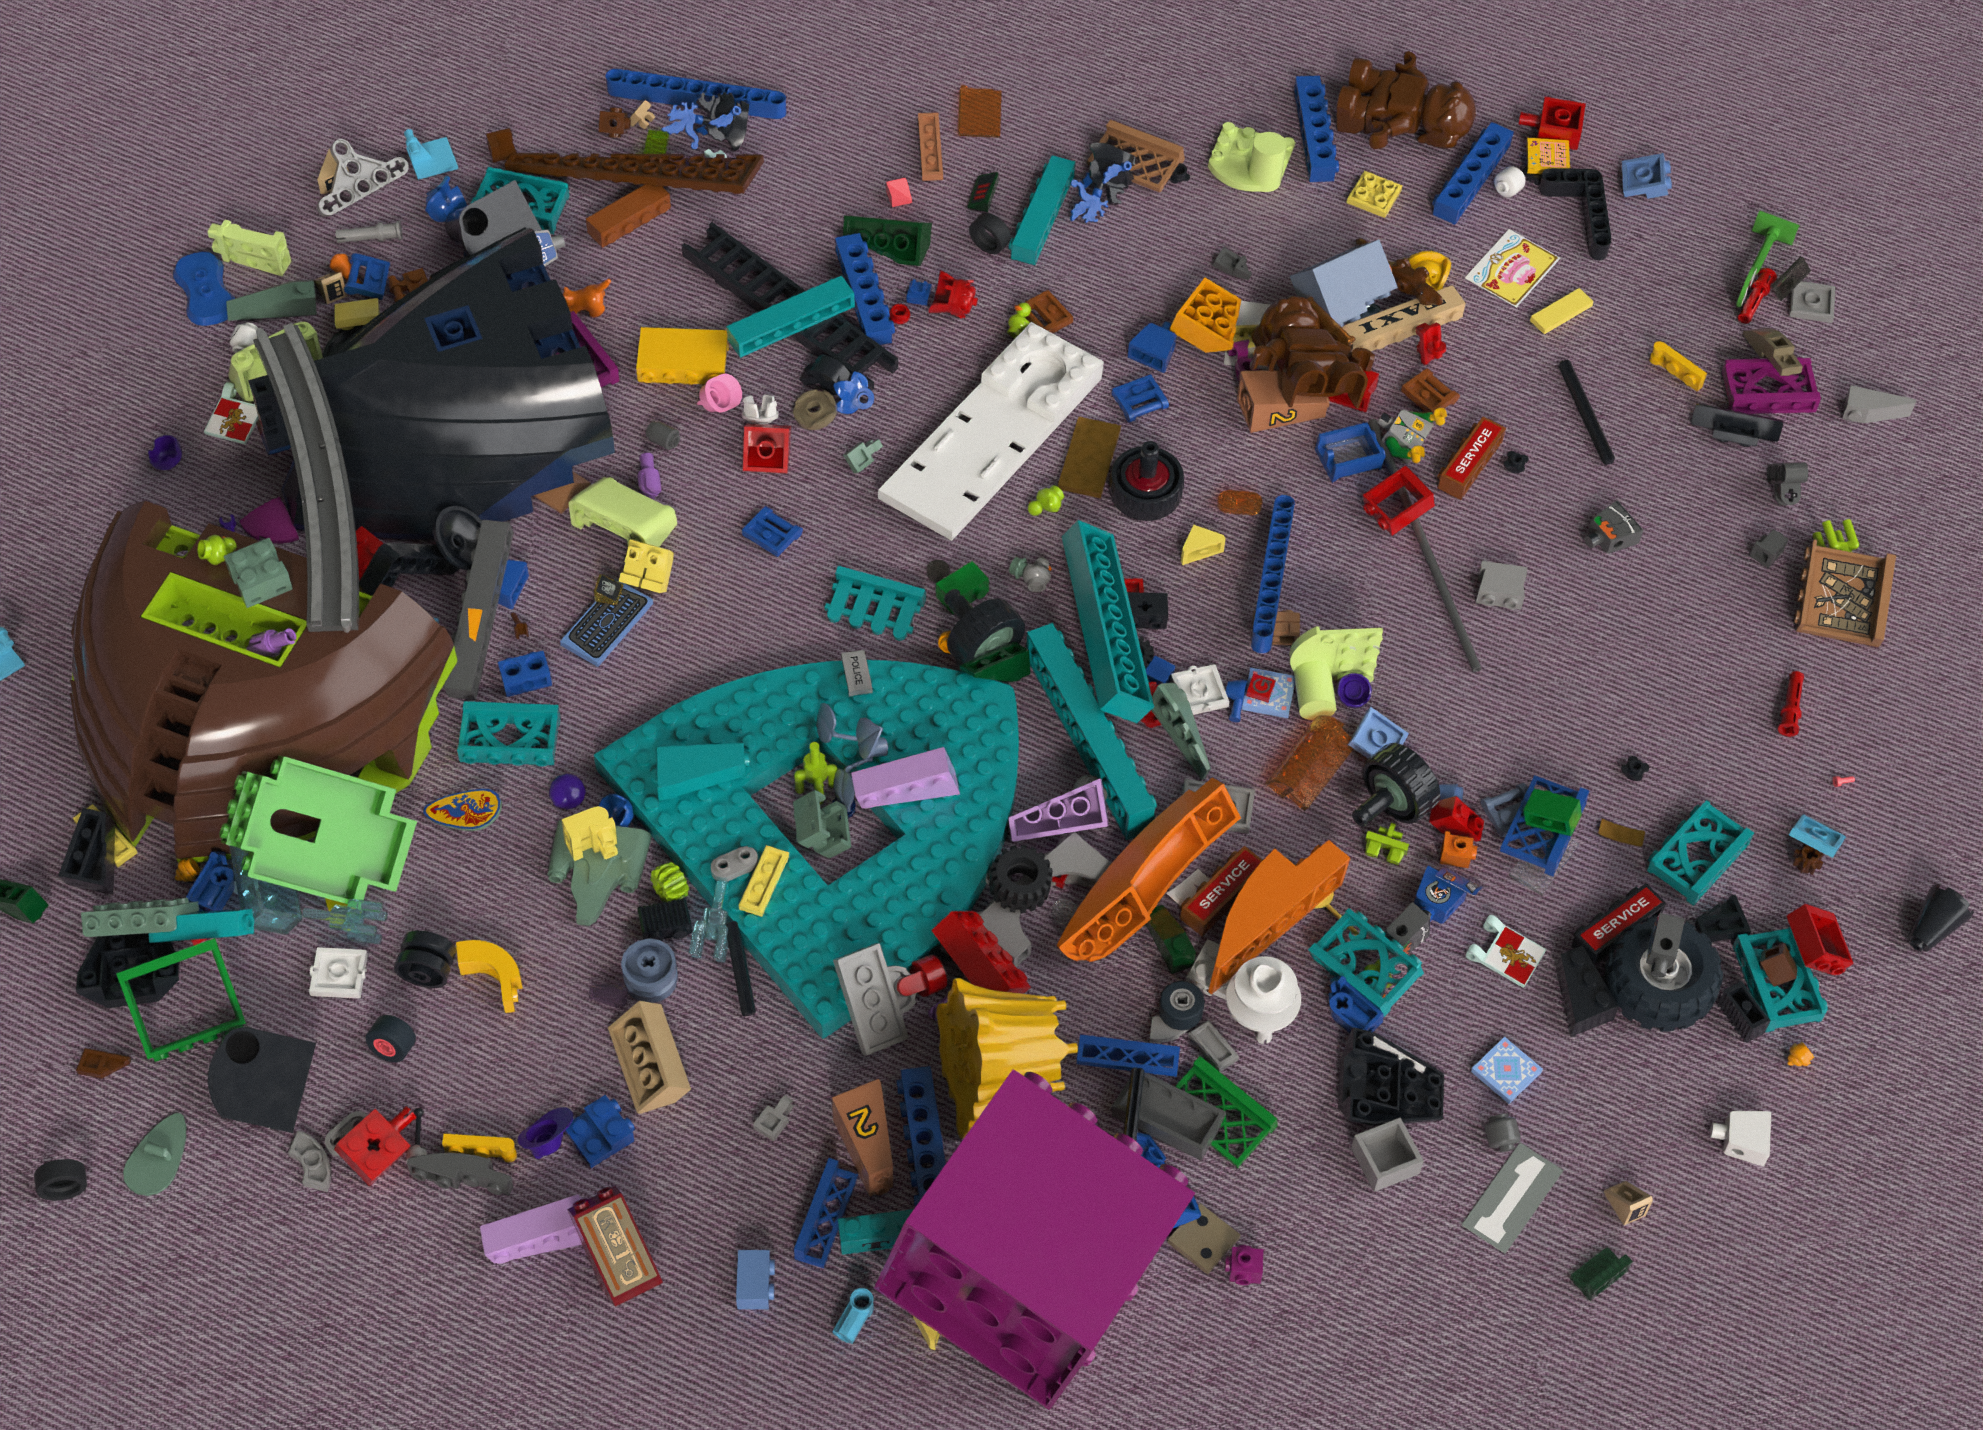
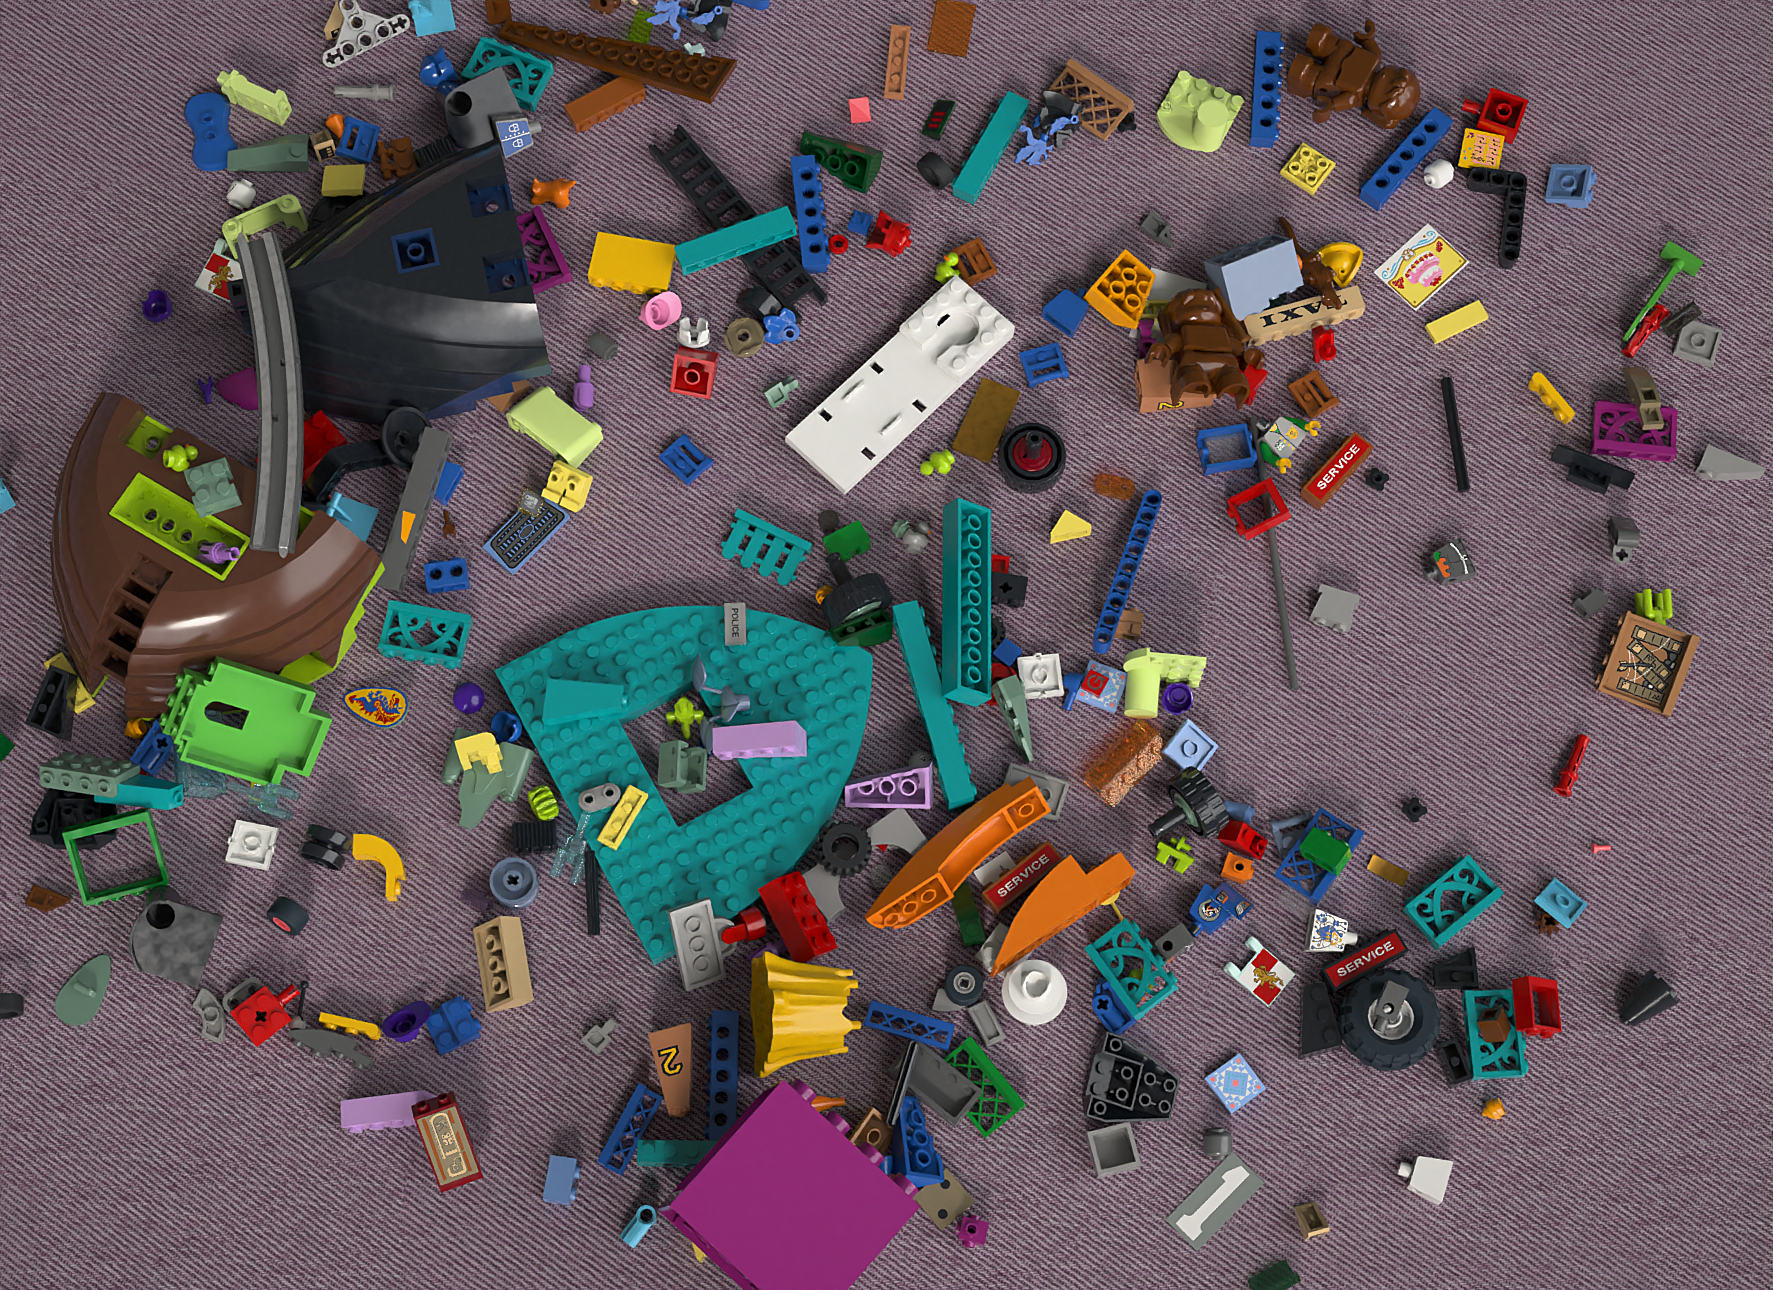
camera: 10 degrees right, 15 degrees up
(1572, 900) = (1327, 933): none -> torso

